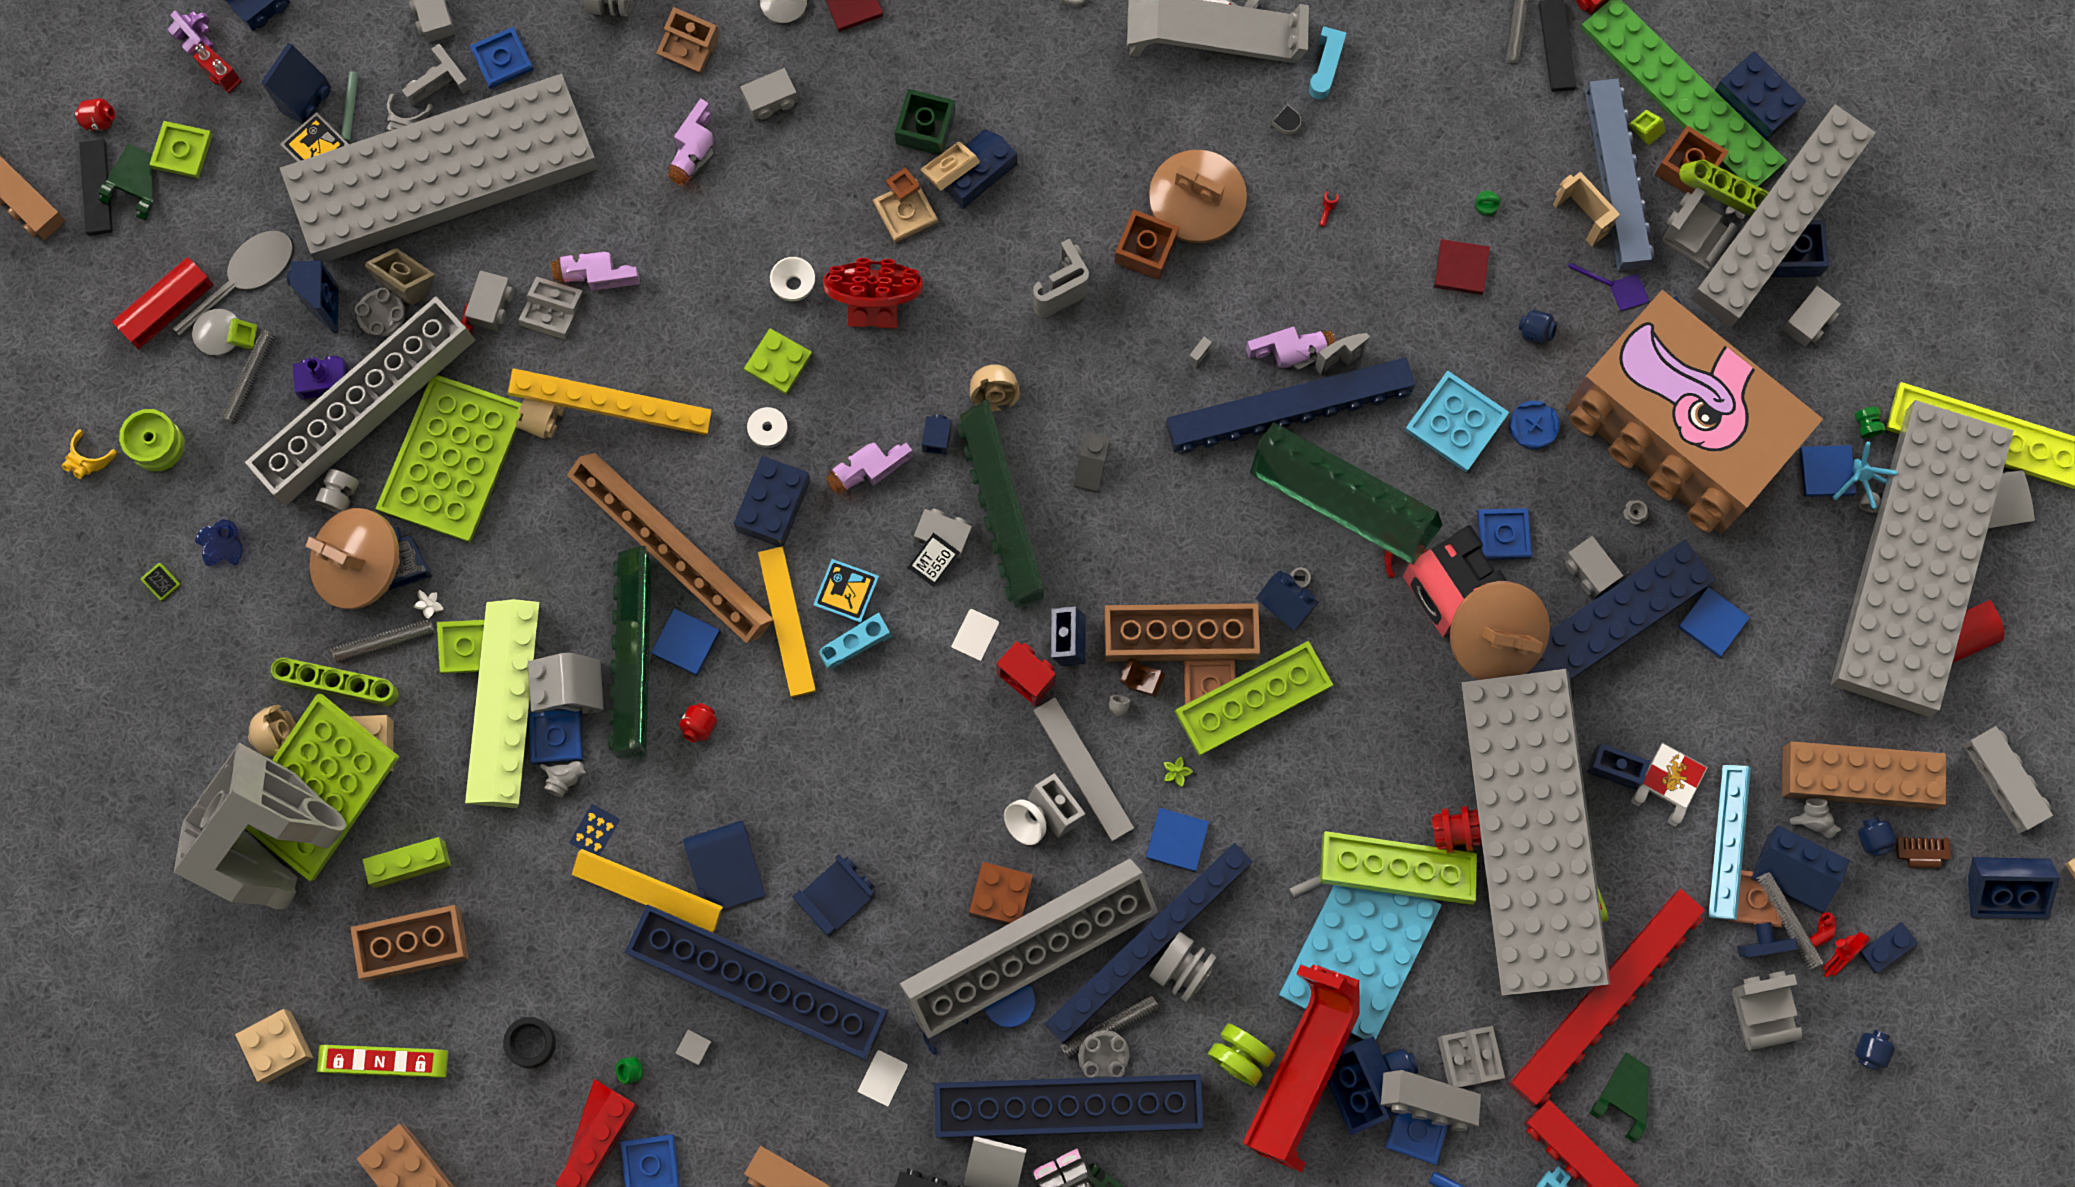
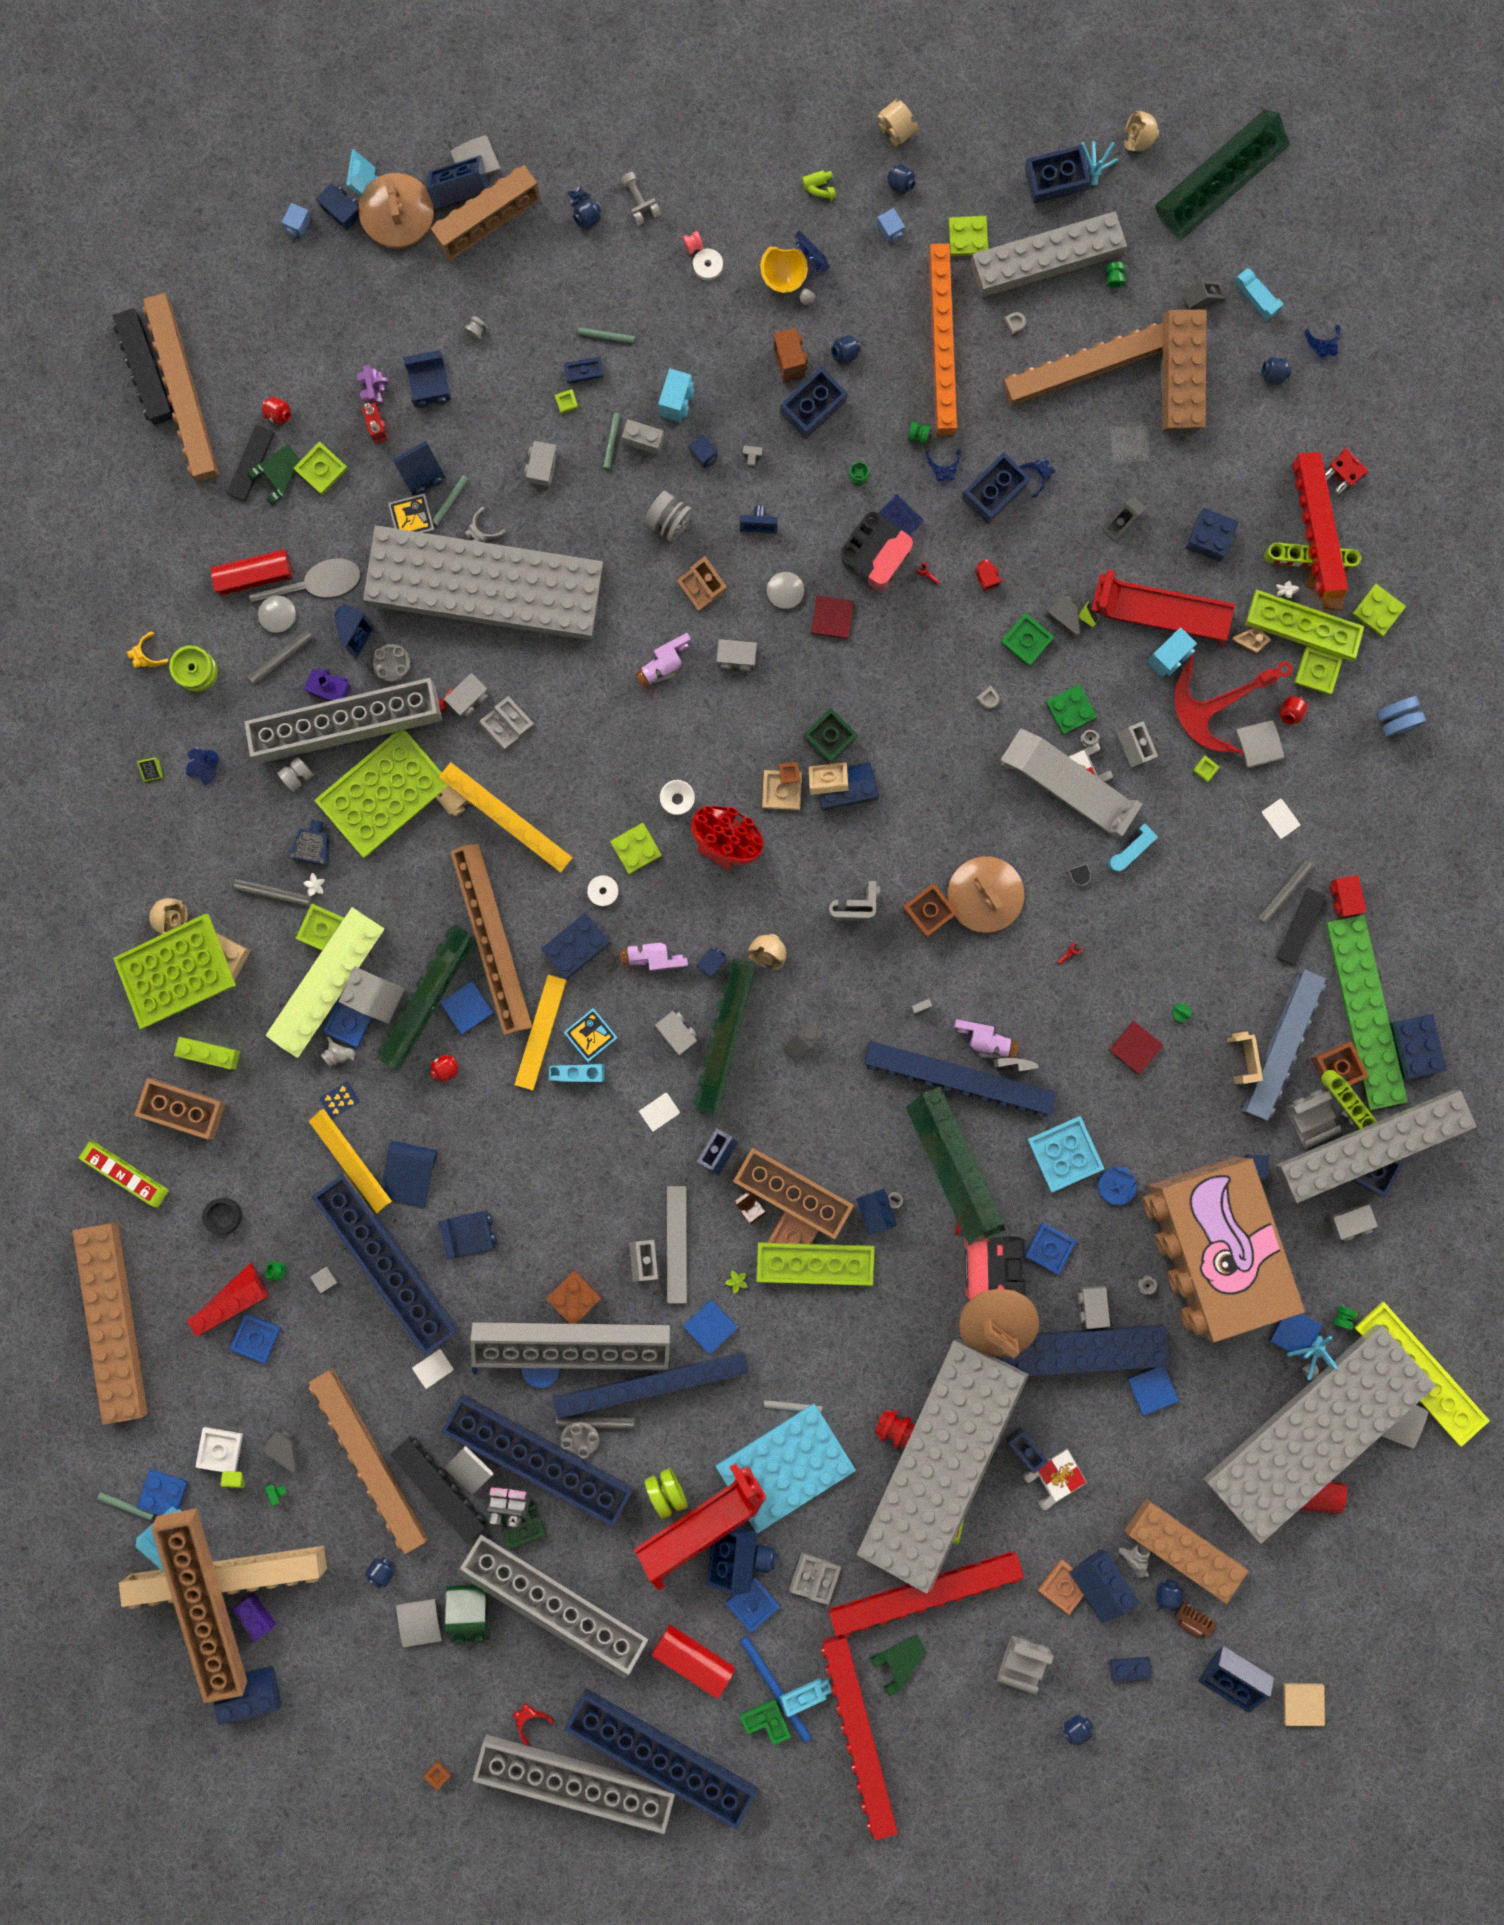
camera: 30 degrees right, 10 degrees up
(241, 333) = (292, 625): lime tile -> none
(270, 798) = (111, 976): light grey brick -> none
(274, 1046) = (60, 1125): tan brick -> none
(325, 674) = (218, 899): lime beam -> none
(354, 558) = (281, 828): medium nougat bracket -> none
(401, 275) = (417, 646): dark tan slope -> none
(436, 78) = (518, 513): light grey bracket -> none
(501, 57) = (571, 522): blue tile -> none
(596, 268) = (550, 713): lavender plate -> none
(933, 559) = (659, 1047): sticker -> none
(1022, 825) = (618, 1259): white piece -> none
(1026, 672) = (675, 1162): red brick -> none
(1119, 705) = (725, 1215): light grey hinge -> none
(1183, 967) = (662, 1415): light grey wheel -> none
(1398, 868) = (841, 1432): lime plate -> none
(1430, 1100) = (768, 1595): light grey brick -> none
(1538, 327) = (1161, 1121): dark blue head -> none
(1627, 291) = (1238, 1129): dark purple piece -> none
(1648, 126) = (1327, 1021): lime slope -> none
(1729, 842) = (1070, 1541): tile -> none
(1766, 943) = (1051, 1621): dark blue tile -> none
(1790, 920) = (1076, 1613): light grey axle -> none
(1825, 930) = (1095, 1635): red arm -> none
(1845, 951) = (1102, 1656): red piece -> none
(2008, 779) = (1281, 1609): light grey brick -> none

